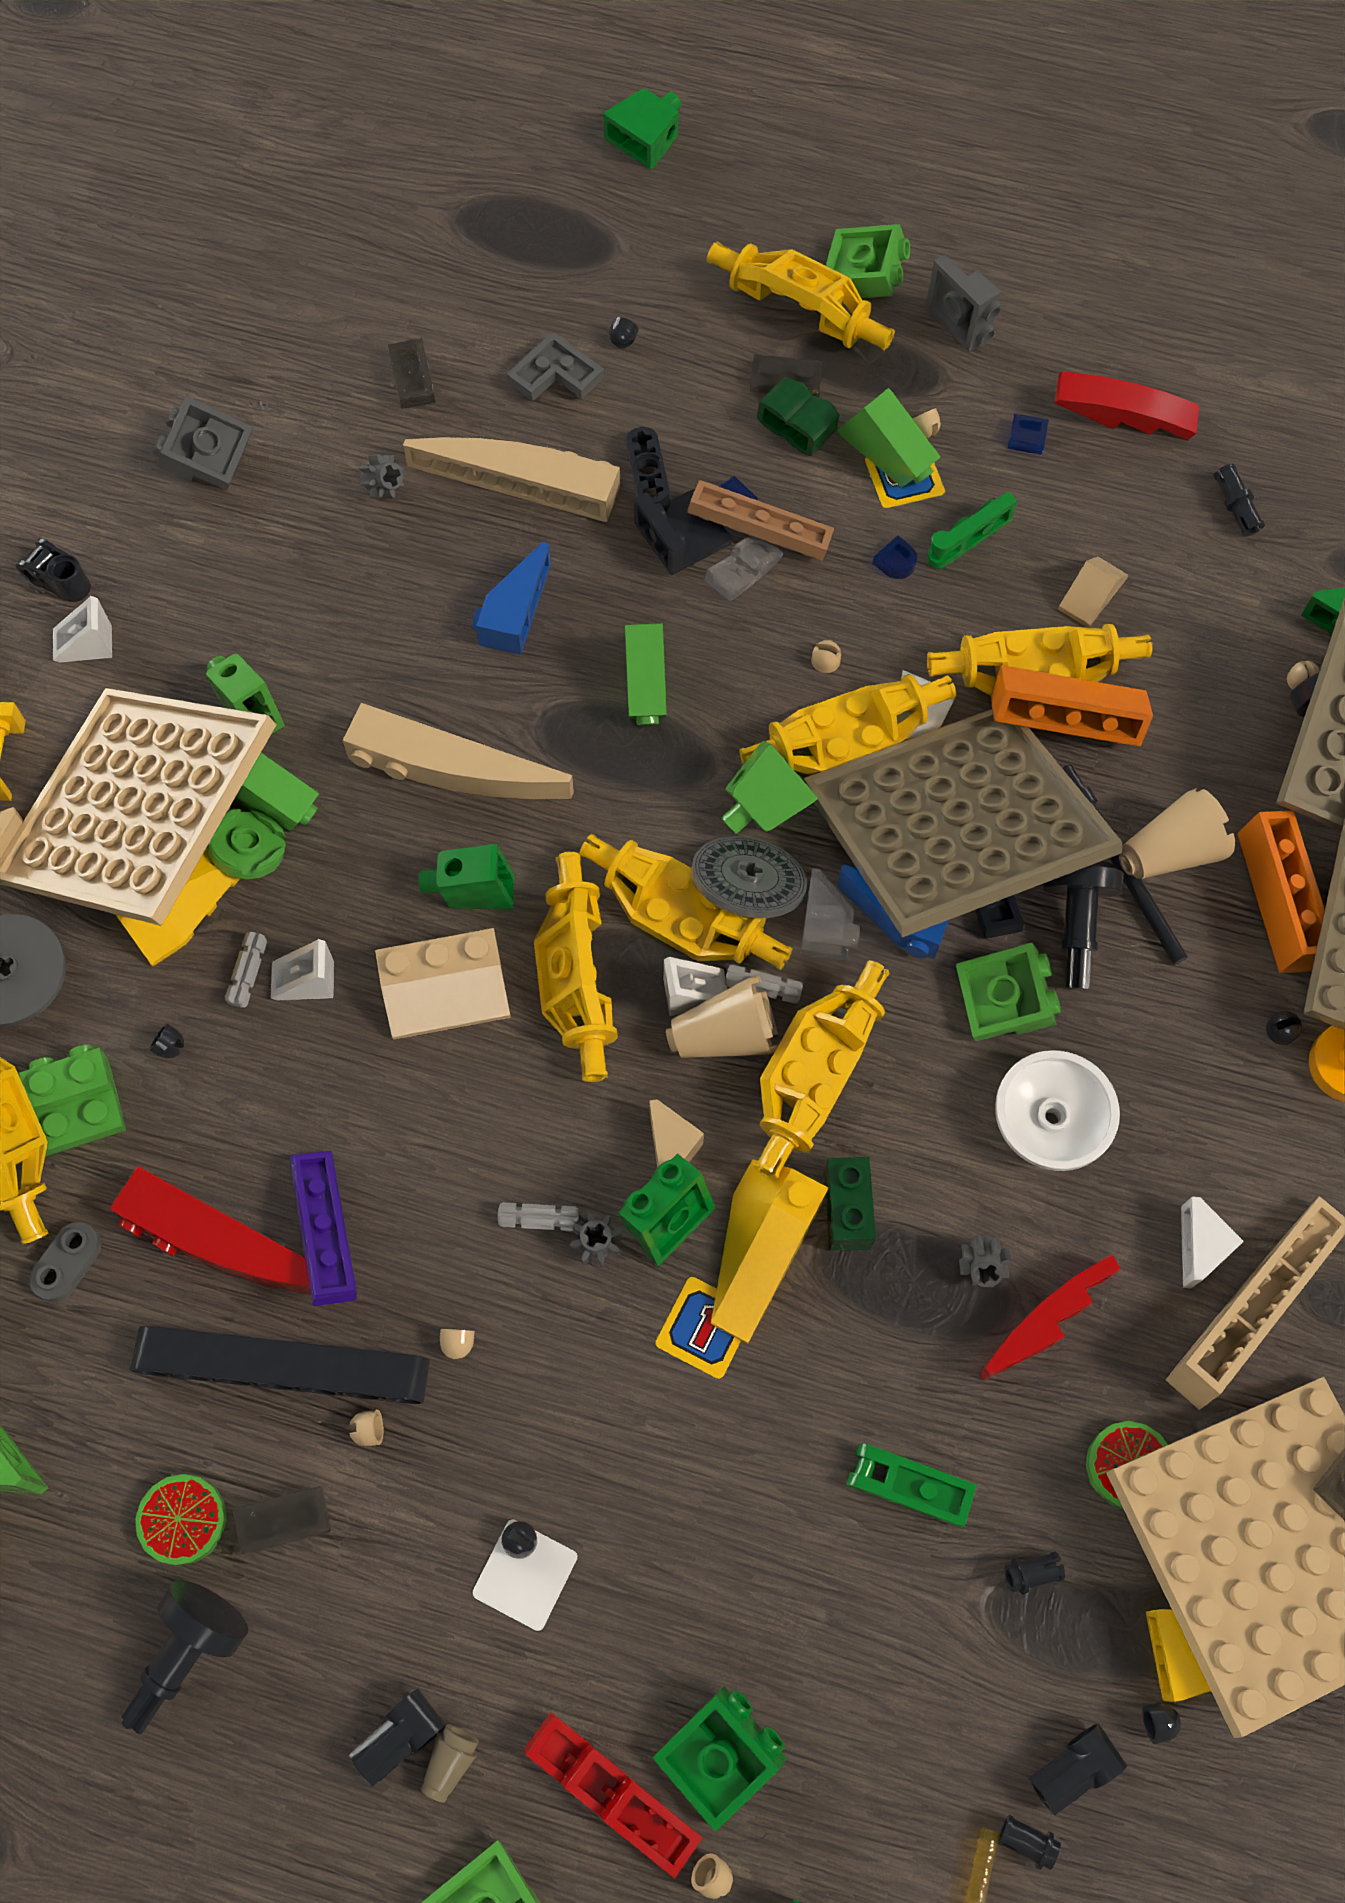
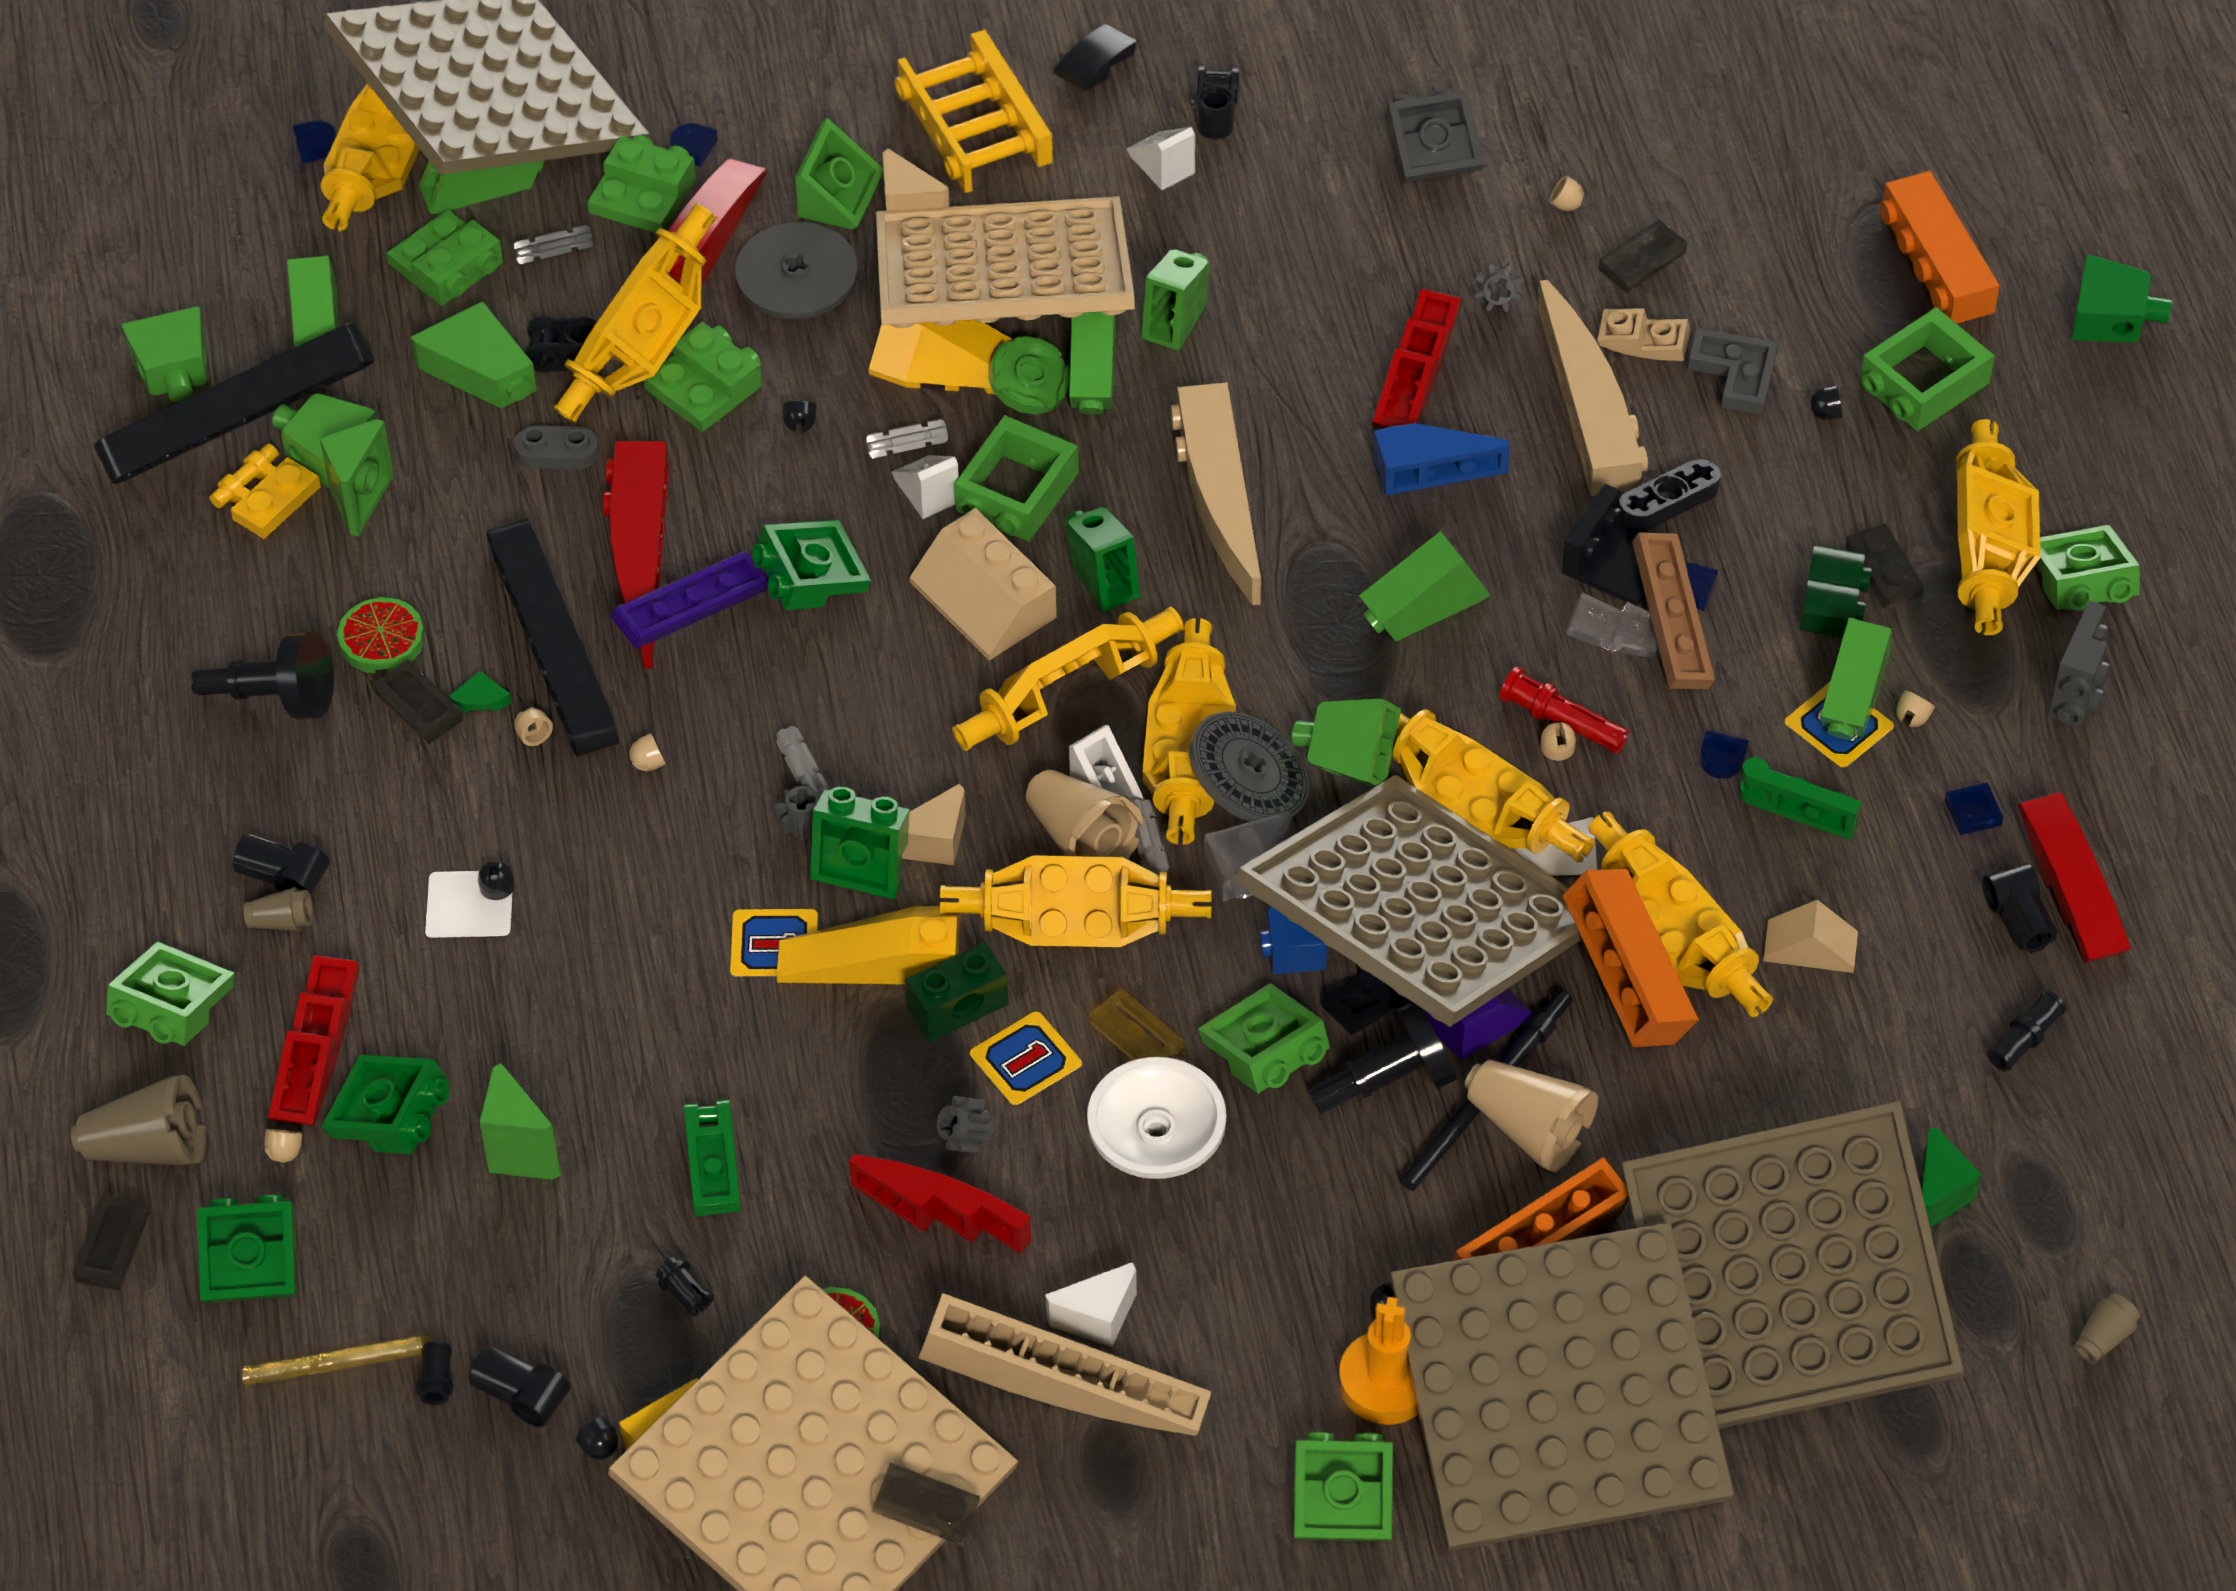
camera: 65 degrees right, 15 degrees down
(304, 1459) = (480, 694): none -> green tile
(317, 391) = (1566, 194): none -> tan hinge
(330, 875) = (1031, 448): none -> bright green window
(336, 1110) = (809, 563): none -> green plate
(414, 567) = (1417, 359): none -> red slope
(485, 412) = (1634, 335): none -> tan slope
(529, 195) = (1939, 247): none -> orange brick
(632, 233) = (1948, 342): none -> bright green window
(791, 644) = (1546, 702): none -> red pin
(822, 1654) = (516, 1132): none -> bright green slope
(913, 1095) = (1125, 1043): none -> clear yellow tile
(924, 1181) = (1025, 1058): none -> sticker
(1123, 447) = (2017, 897): none -> black piece

